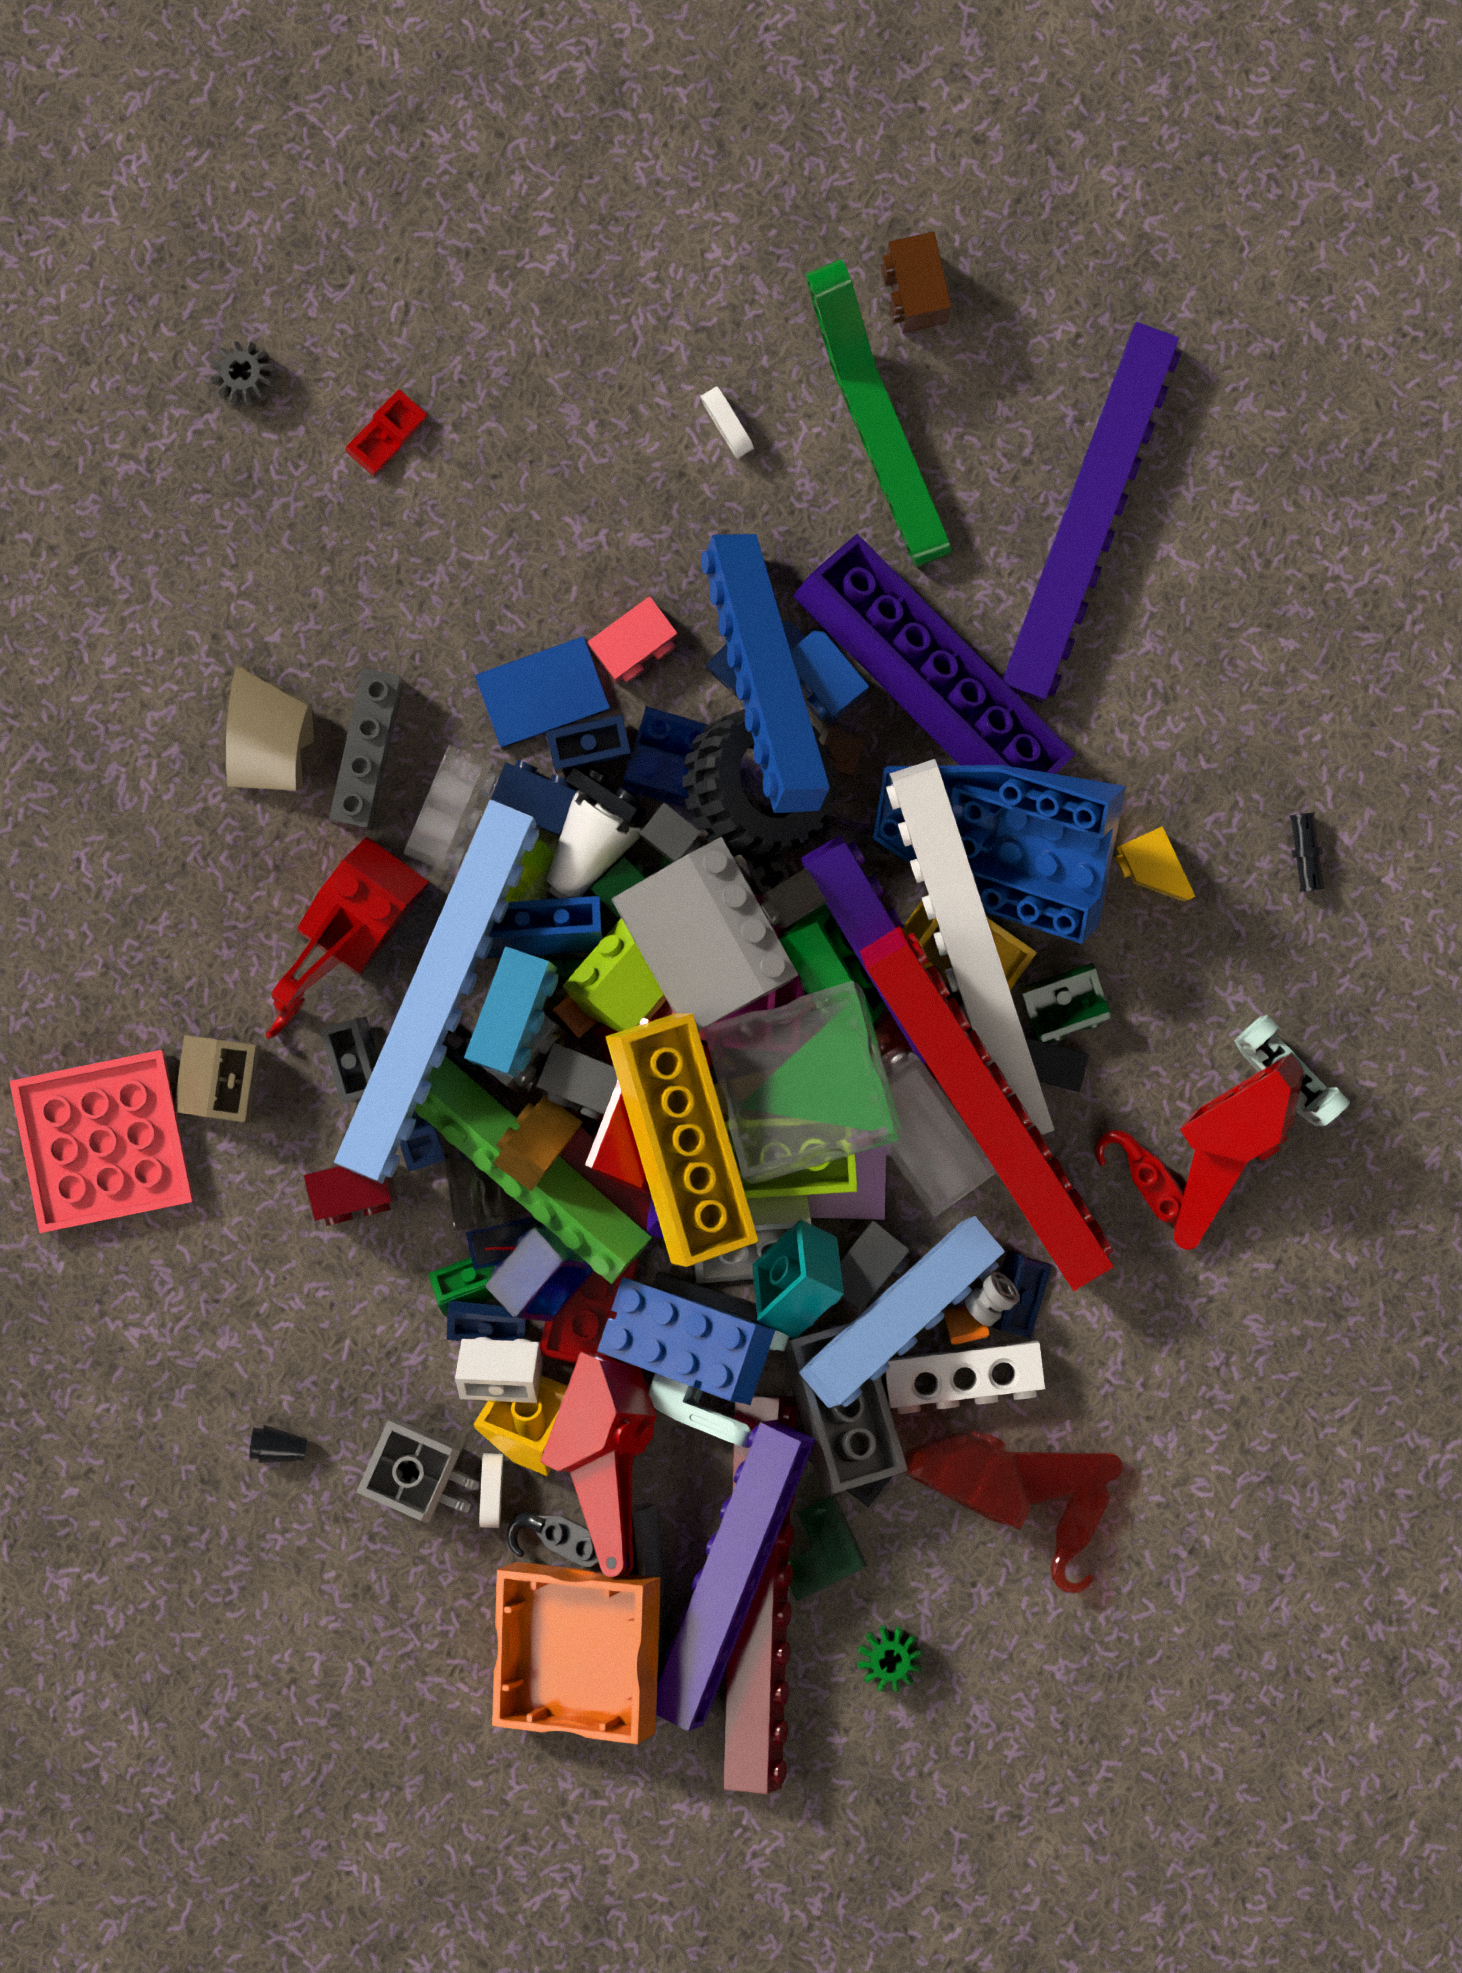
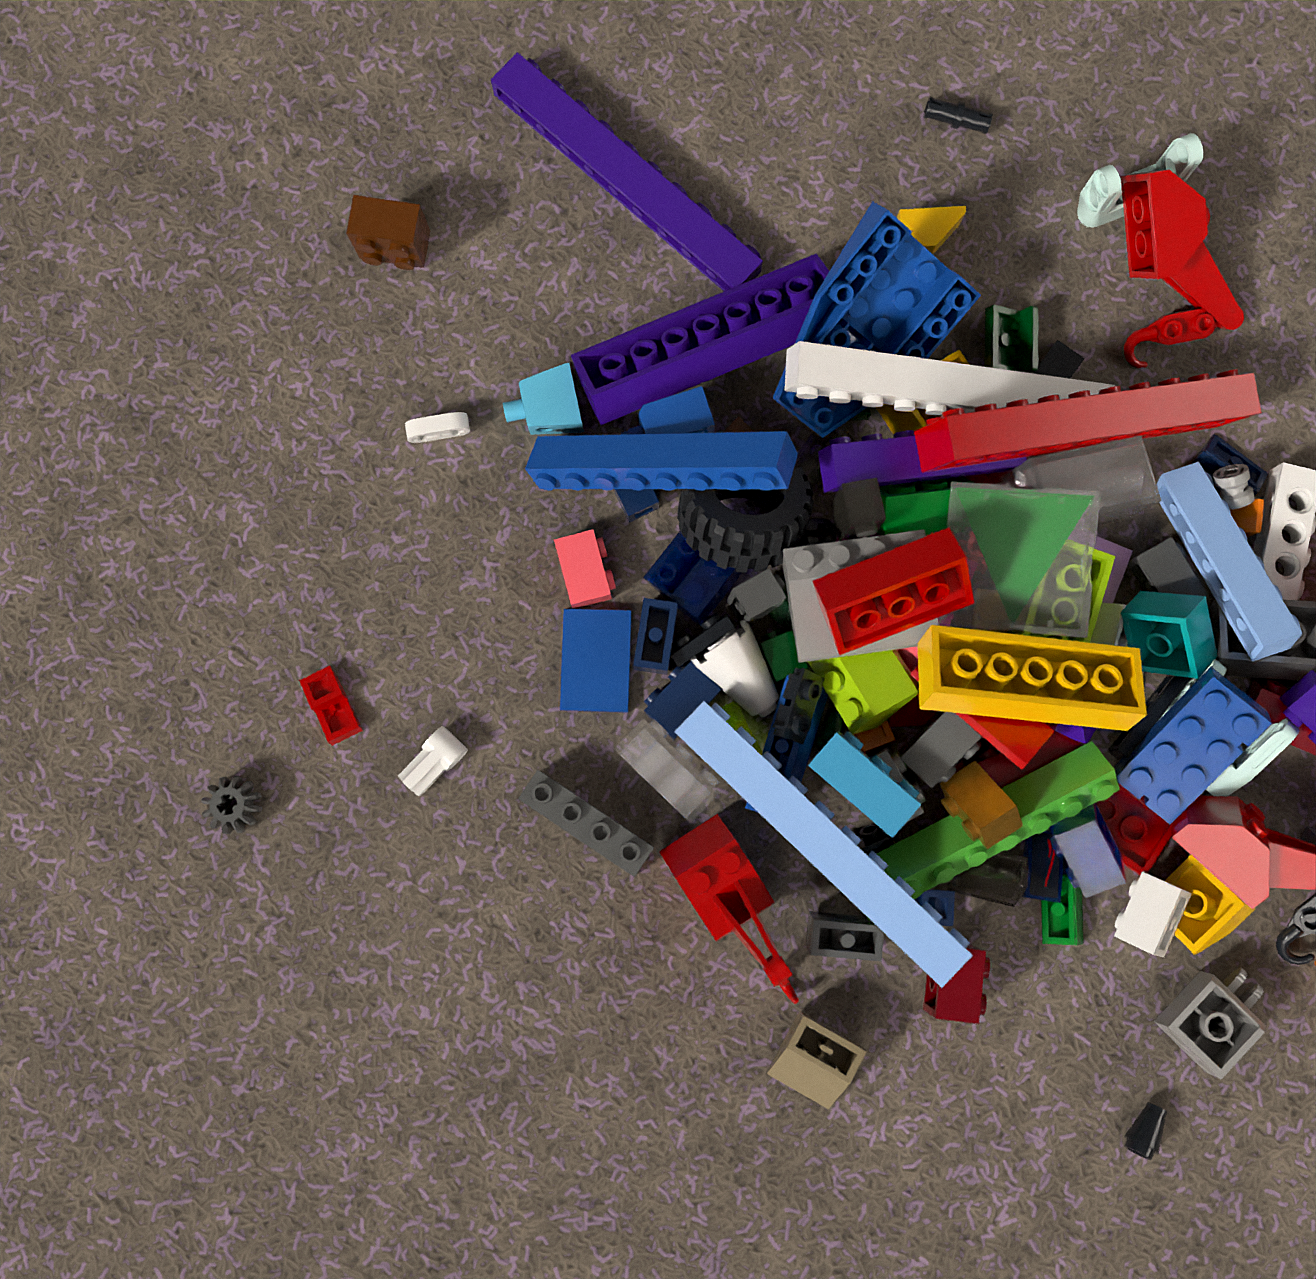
camera: 70 degrees left, 5 degrees down
(101, 1141) = (831, 1183): coral plate -> none
(265, 734) = (540, 903): dark tan slope -> none
(378, 567) = (438, 755): none -> white piece
(482, 1320) = (1099, 920): dark blue plate -> none
(491, 1490) = (1248, 960): white beam -> none
(554, 920) = (804, 691): none -> black hinge
(714, 963) = (895, 591): none -> red slope
(799, 529) = (547, 403): none -> medium azure torso
(873, 413) = (475, 310): green beam -> none

